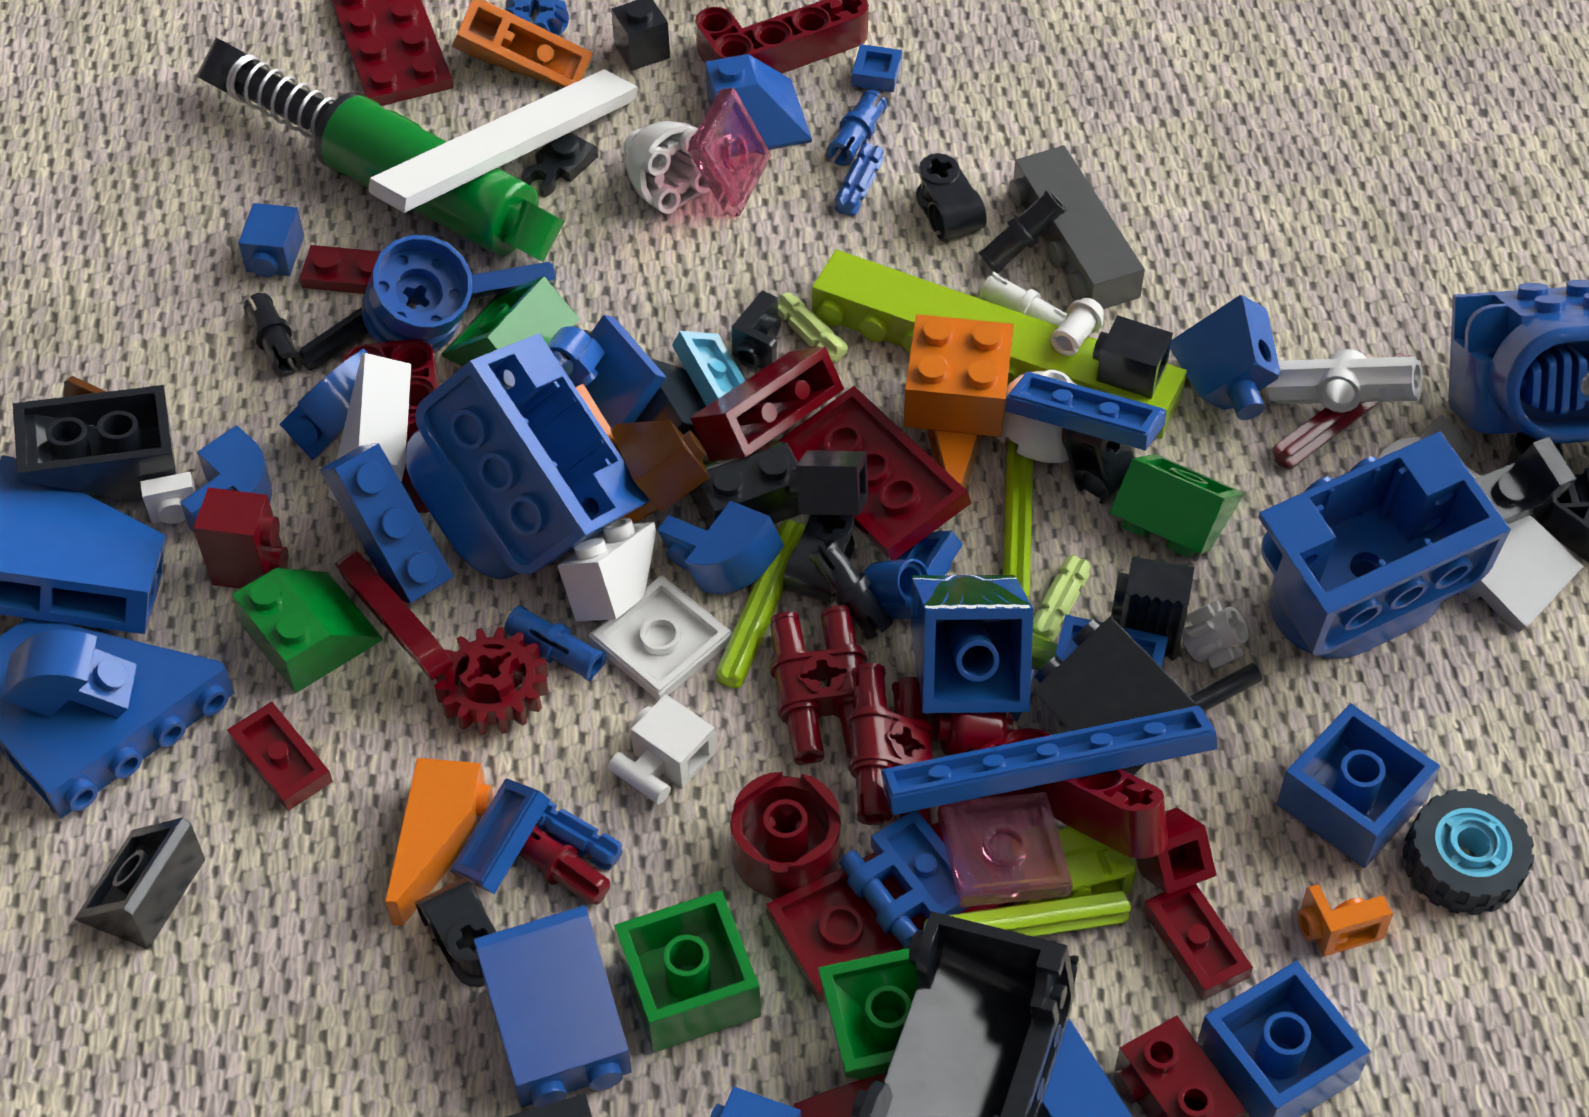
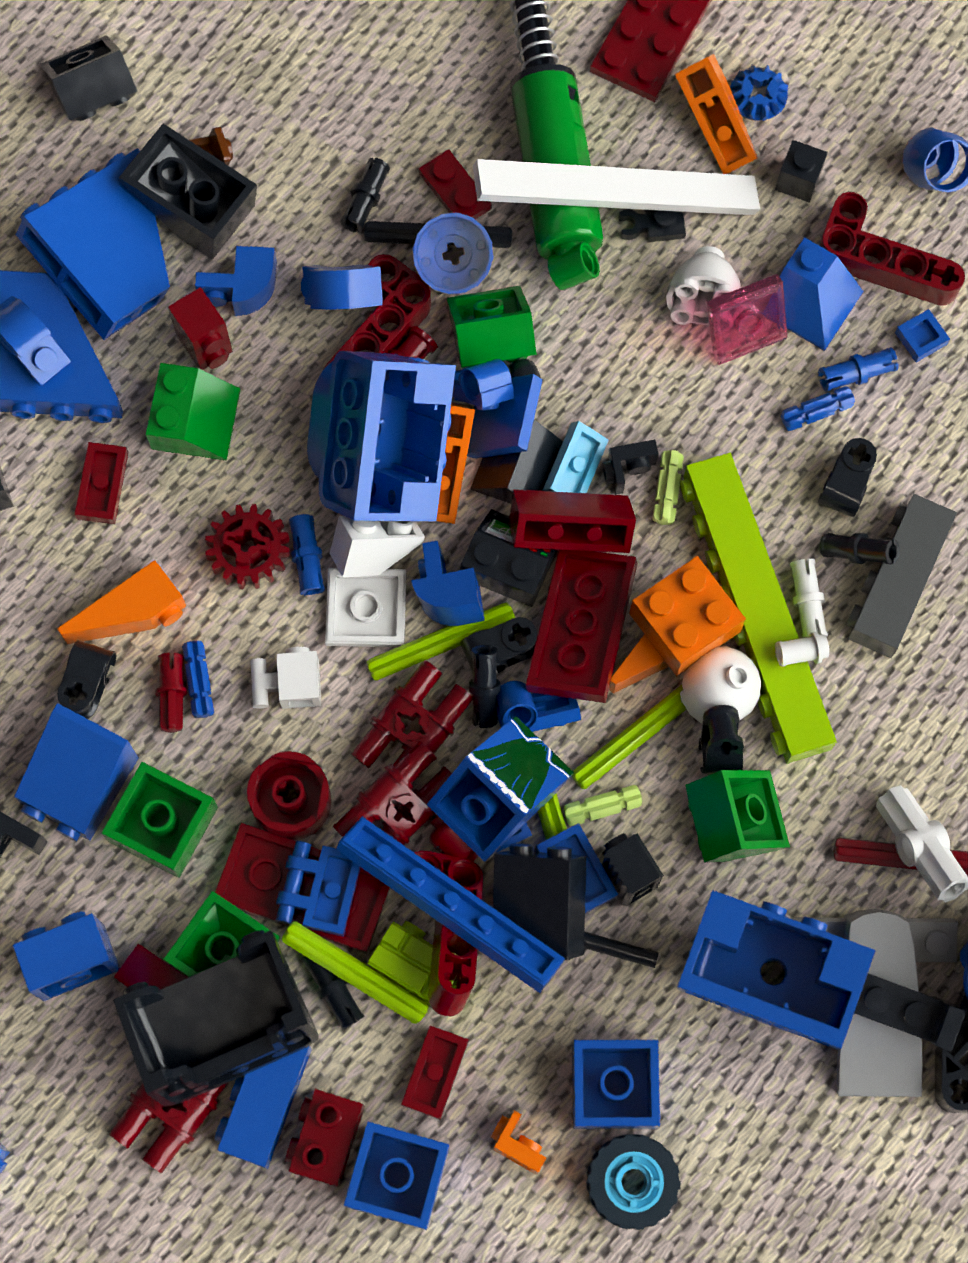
camera: 45 degrees right, 20 degrees up
(164, 495) = (200, 258): white plate -> none
(271, 239) = (427, 126): blue brick -> none
(379, 410) = (330, 330): white slope -> none
(386, 522) = (277, 398): blue brick -> none
(394, 615) = (234, 456): dark red beam -> none
(500, 835) = (154, 645): blue tile -> none
(502, 280) = (528, 285): blue tile -> none
(661, 459) = (462, 503): reddish brown slope -> none
(830, 482) = (534, 615): black brick -> none
(1004, 849) = (376, 927): clear pink tile -> none
(1086, 410) = (720, 717): blue tile -> none
(1132, 356) = (804, 704): black brick -> none
(1186, 857) = (476, 1019): dark red brick -> none
(1215, 634) = (653, 918): white gear -> none
(1230, 356) = (874, 759): blue torso -> none

